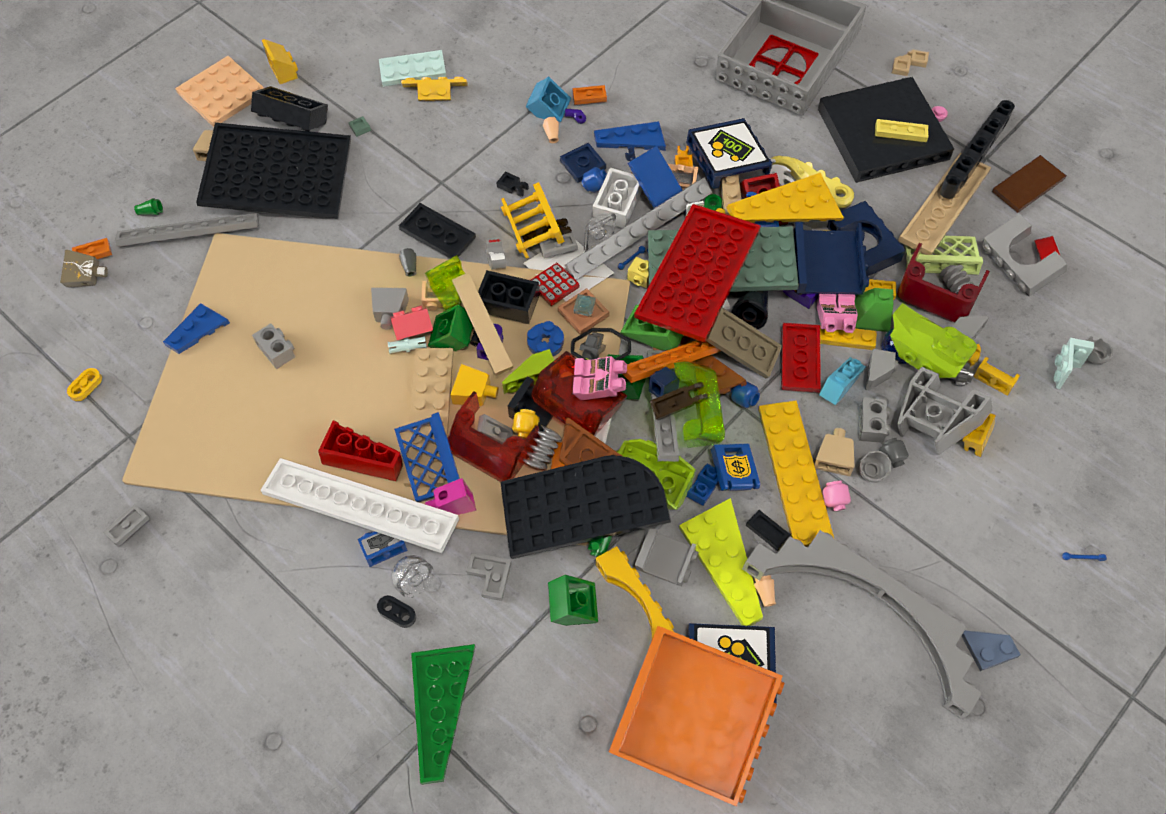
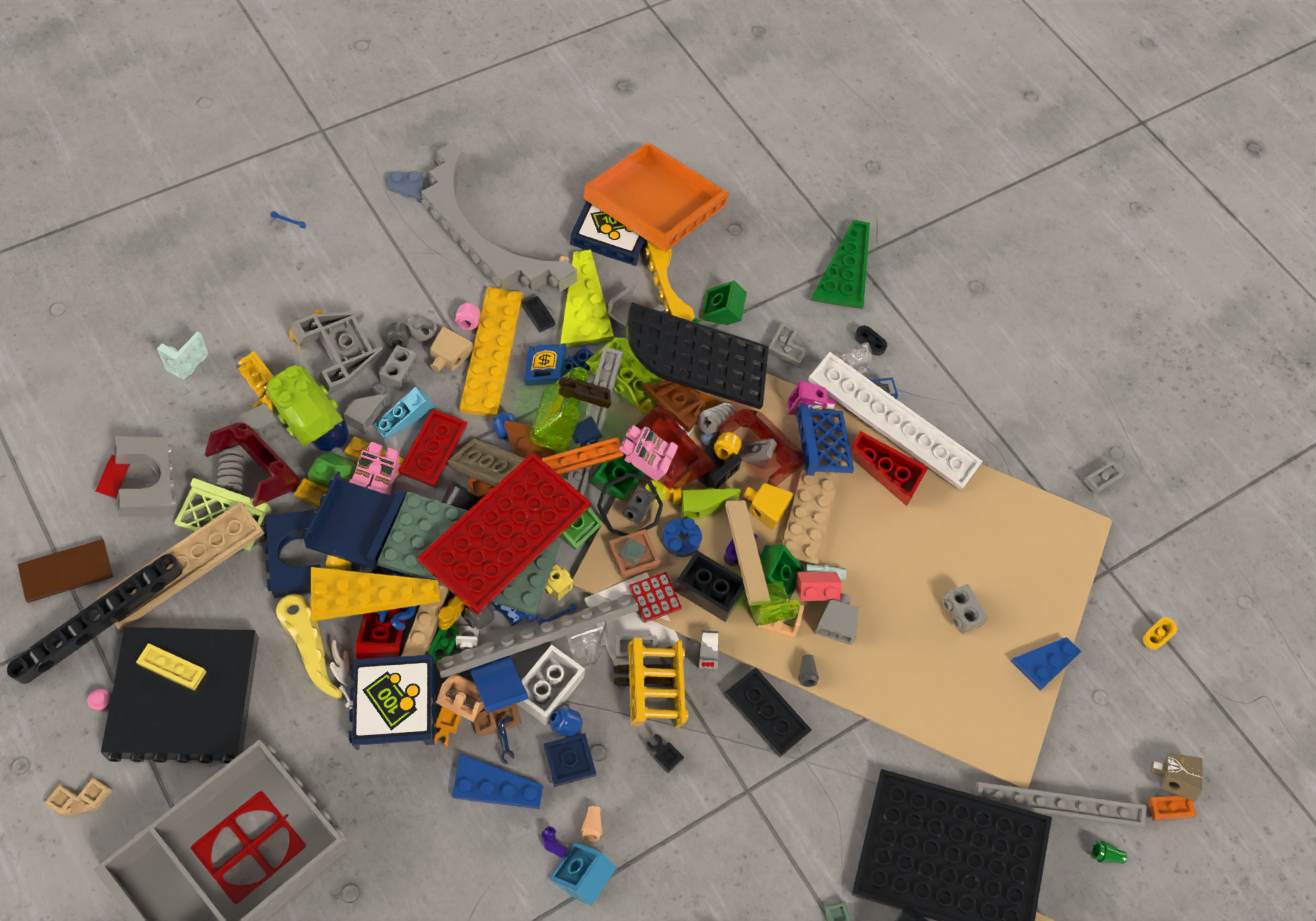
camera: 175 degrees left, 0 degrees up
(590, 94) = (524, 870): orange plate -> none
(1101, 353) = (146, 365): light grey hair -> none

